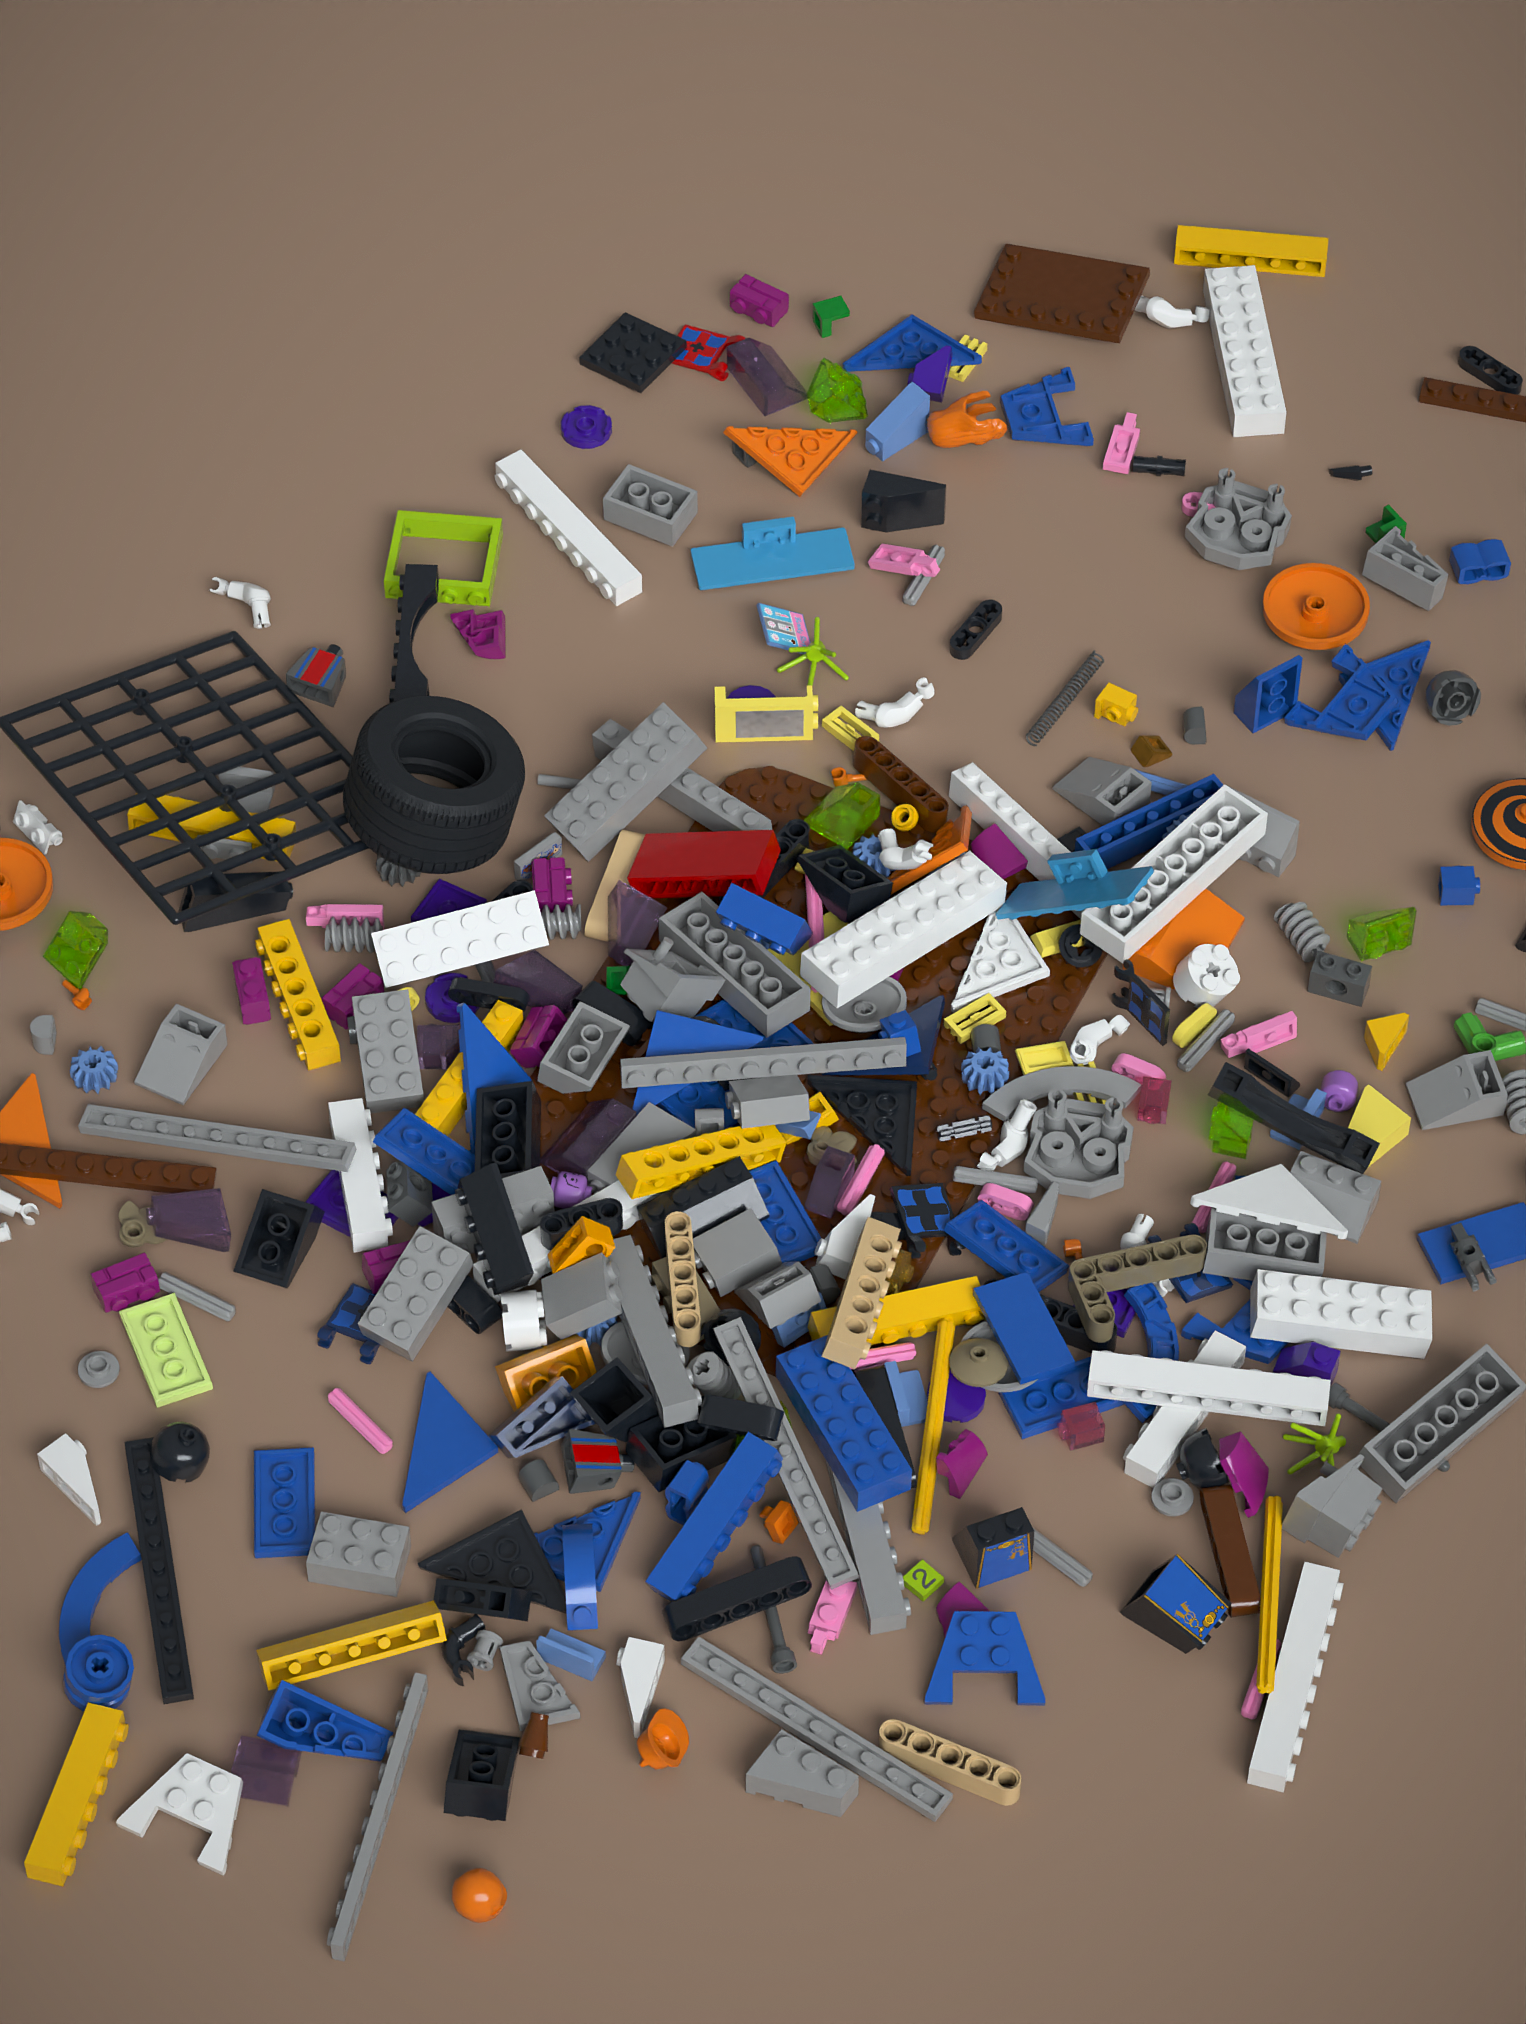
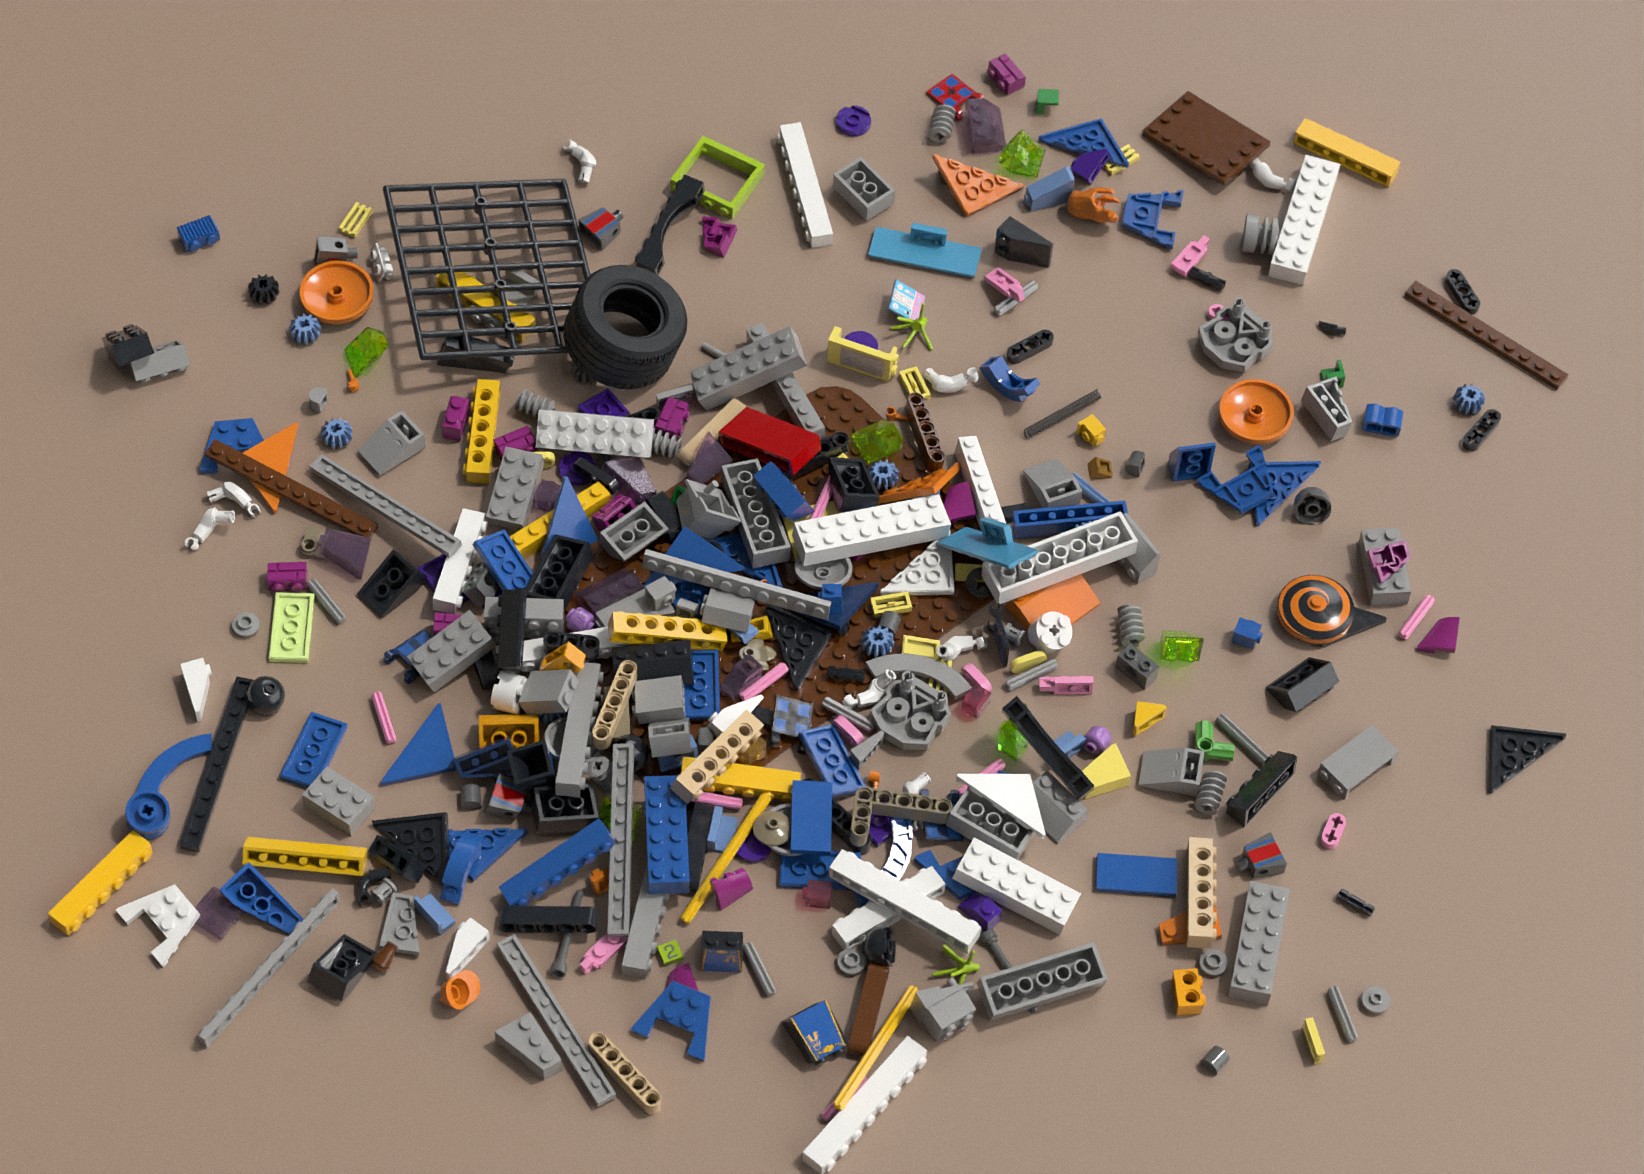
camera: 20 degrees right, 5 degrees up
(322, 914) = (521, 384): bright pink hinge -> none
(478, 1895) = (301, 1039): orange helmet -> none
(633, 352) = (908, 81): black plate -> none
(666, 1111) = (660, 593): none -> light grey brick
(686, 1491) = (551, 837): blue brick -> none
(708, 389) = (941, 123): none -> light grey piece
(740, 1417) = (601, 807): black beam -> none
(898, 814) = (912, 452): yellow plate -> none
(902, 858) = (890, 480): white arm -> none
(972, 684) = (1006, 381): none -> blue arch
(1199, 386) = (1259, 234): none -> light grey wheel
(1245, 1470) = (902, 962): magenta slope -> none
(1270, 1074) = (1061, 711): black slope -> none
(1470, 1257) = (1120, 881): dark grey hinge -> none

